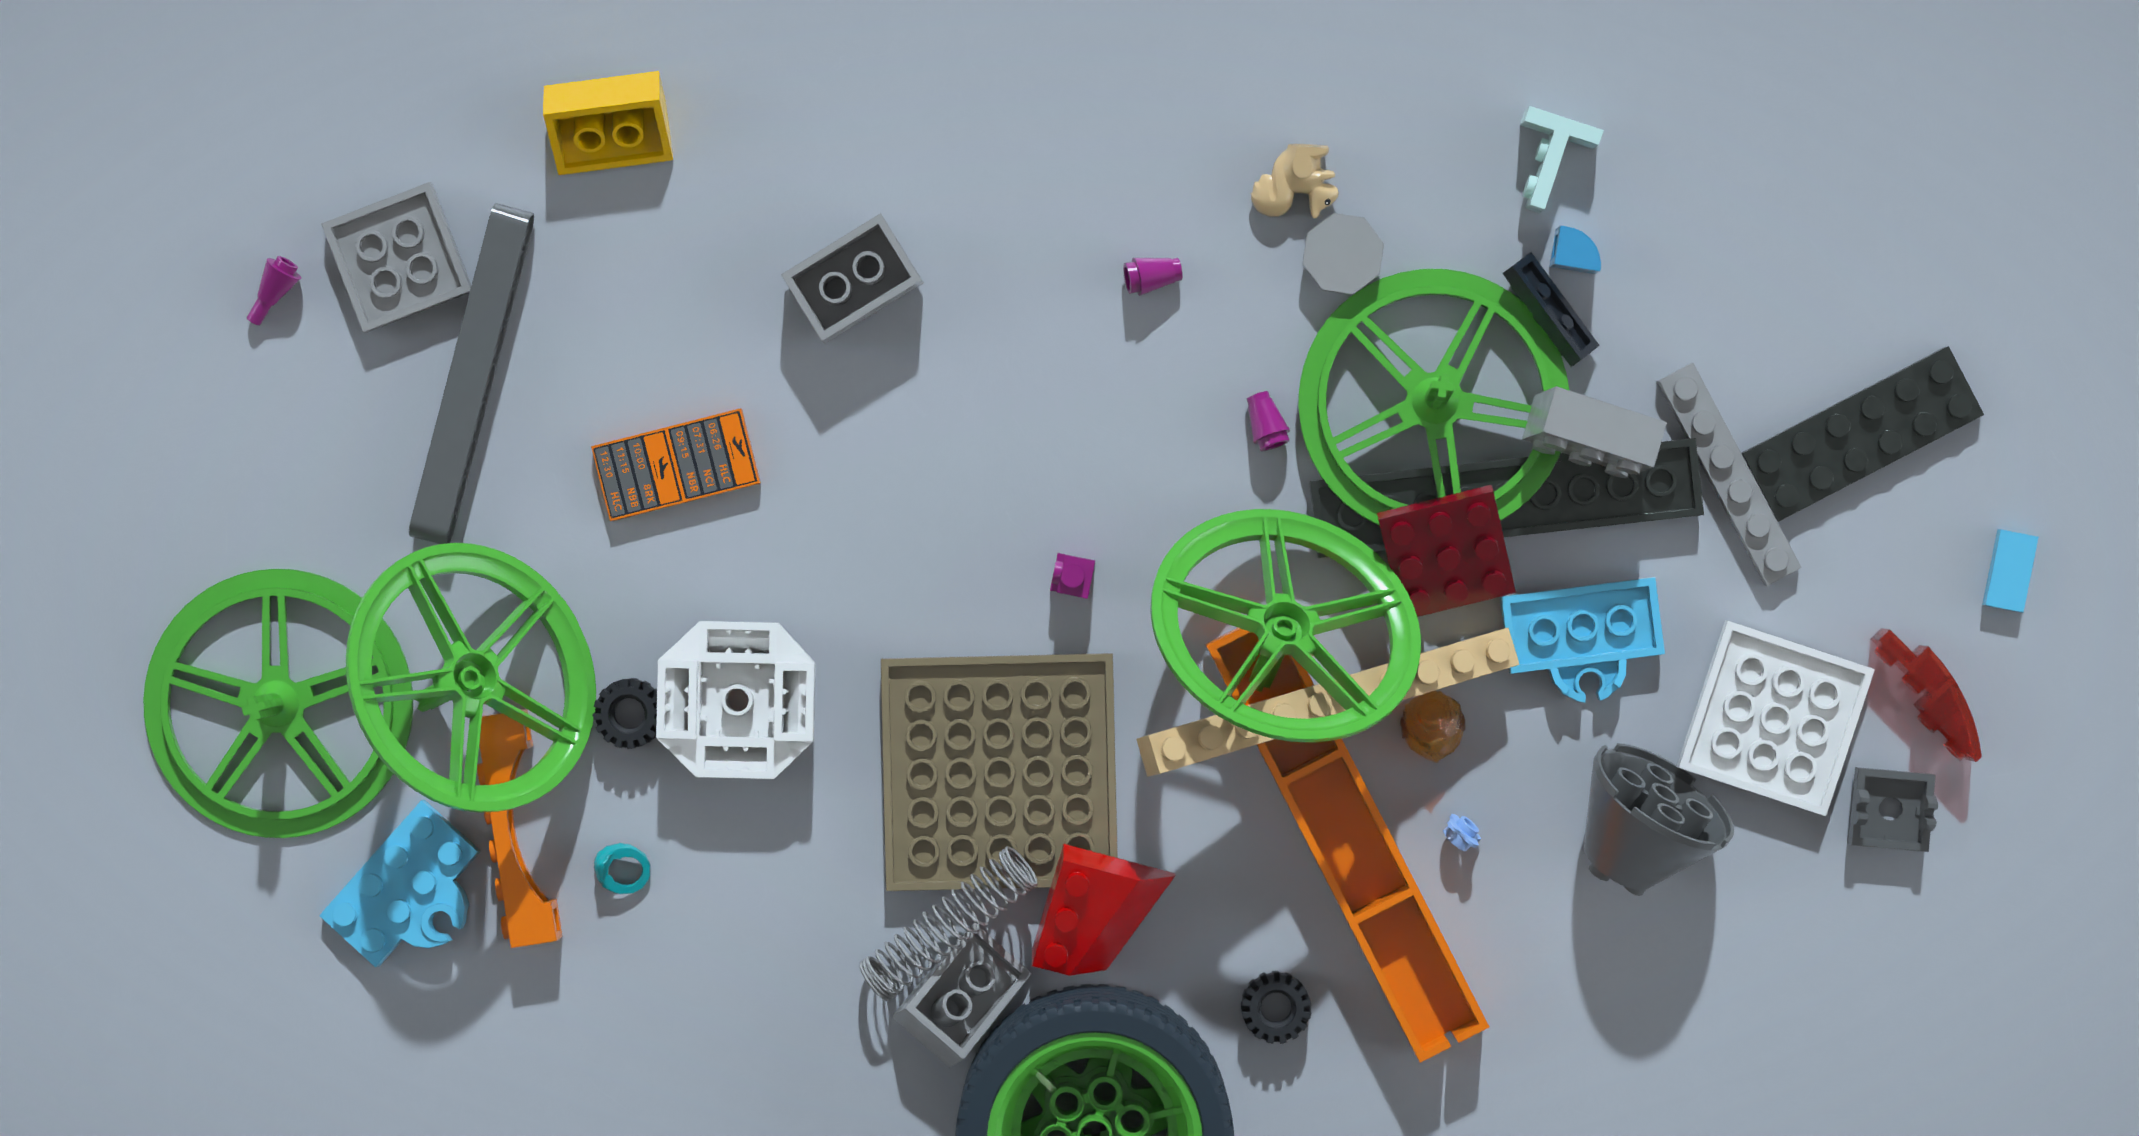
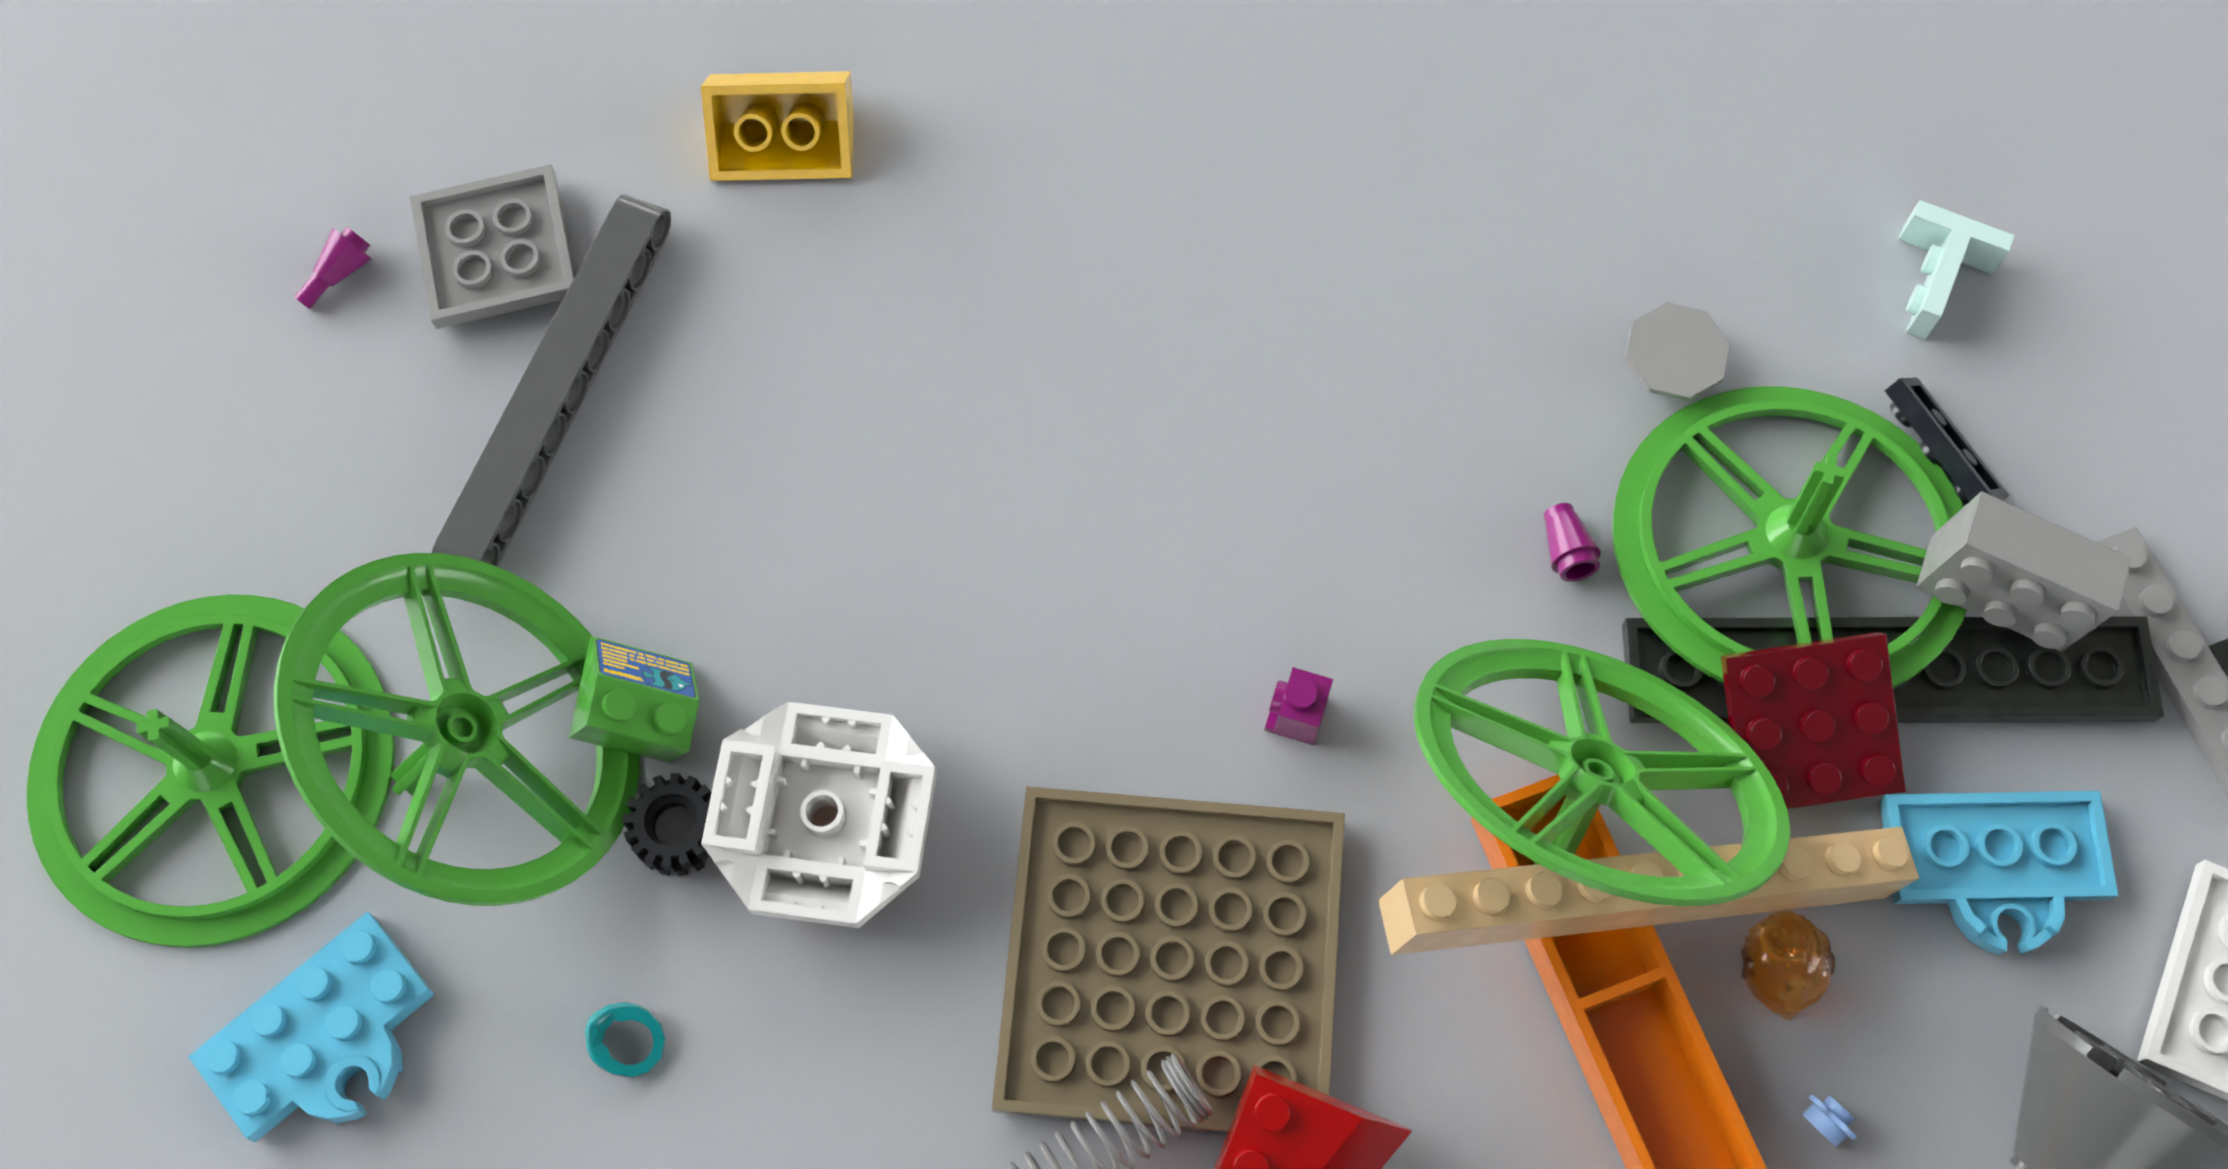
camera: 10 degrees right, 20 degrees down
(529, 913) = (479, 1084): orange arch -> none
(586, 626) = (635, 701): none -> bright green slope
(676, 464) = (793, 520): tile -> none
(852, 278) = (1052, 315): light grey brick -> none
(1150, 274) = (1429, 353): magenta cone -> none
(1295, 172) = (1620, 256): tan animal -> none
(1574, 251) = (1977, 378): dark azure brick -> none

